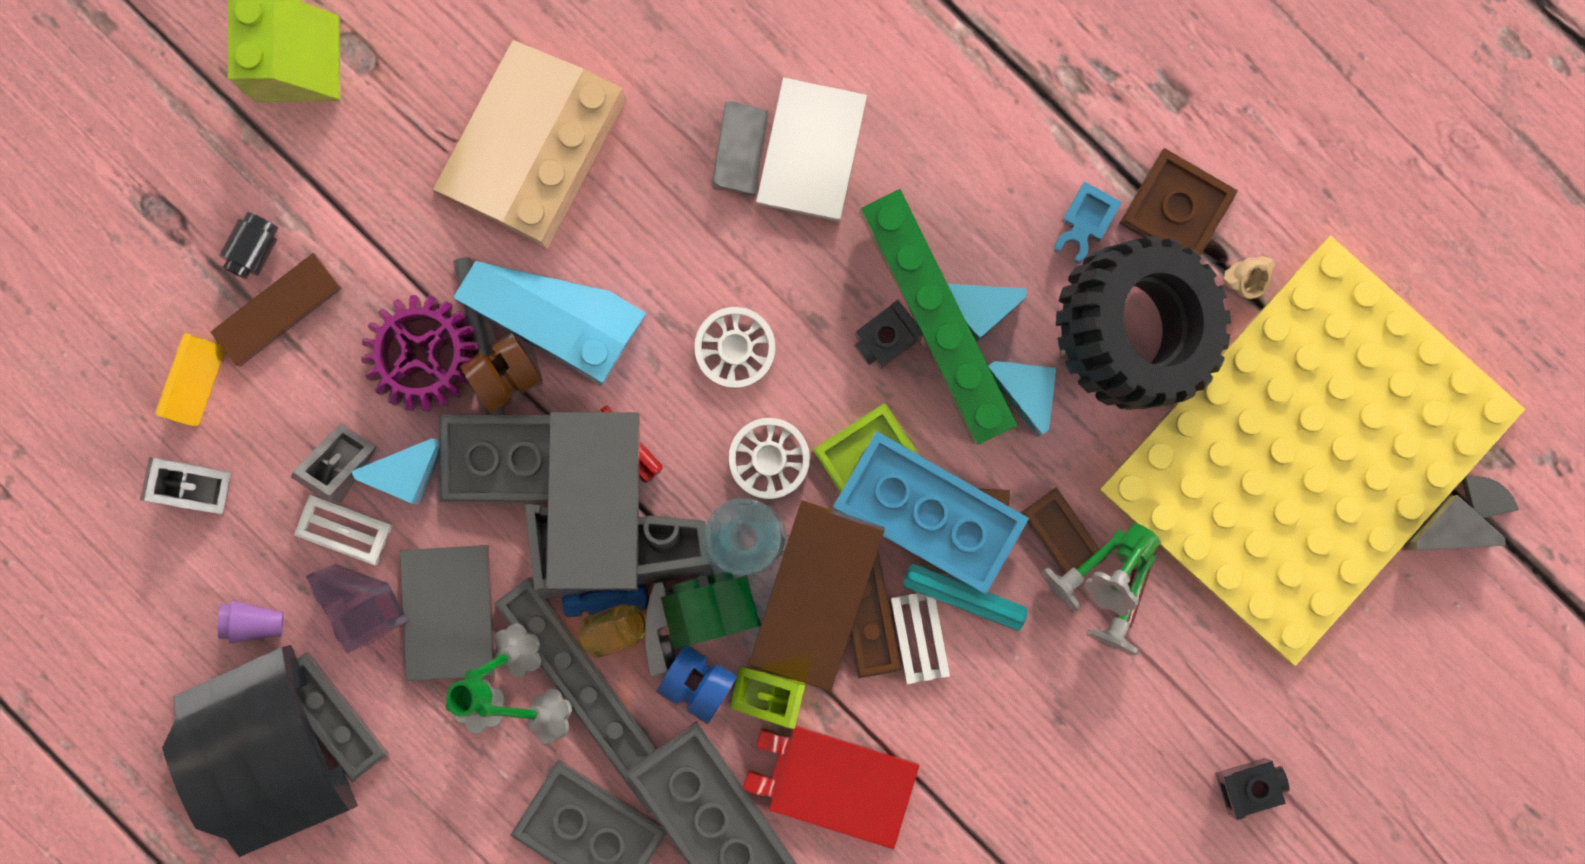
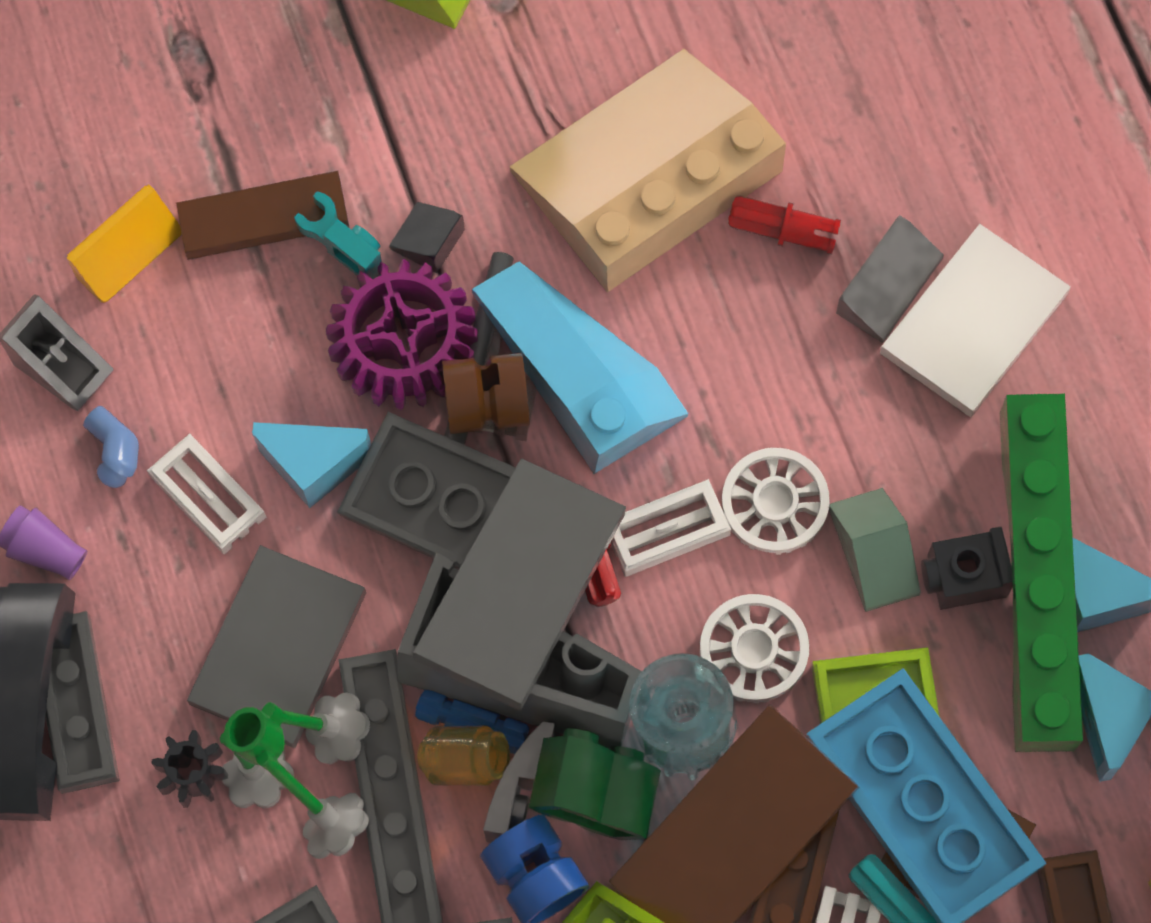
camera: 25 degrees right, 15 degrees down
(249, 245) = (270, 130): black brick -> none
(265, 527) = (119, 447): none -> medium blue arm
(330, 464) = (229, 407): flat silver slope -> none
(354, 305) = (351, 247): none -> teal plate
(356, 605) = (176, 585): clear purple slope -> none
(401, 269) = (428, 235): none -> black slope
(430, 738) = (180, 756): none -> black gear
(647, 142) = (782, 223): none -> red axle
(661, 386) = (678, 546): none -> white tile
(817, 348) = (876, 548): none -> sand green slope

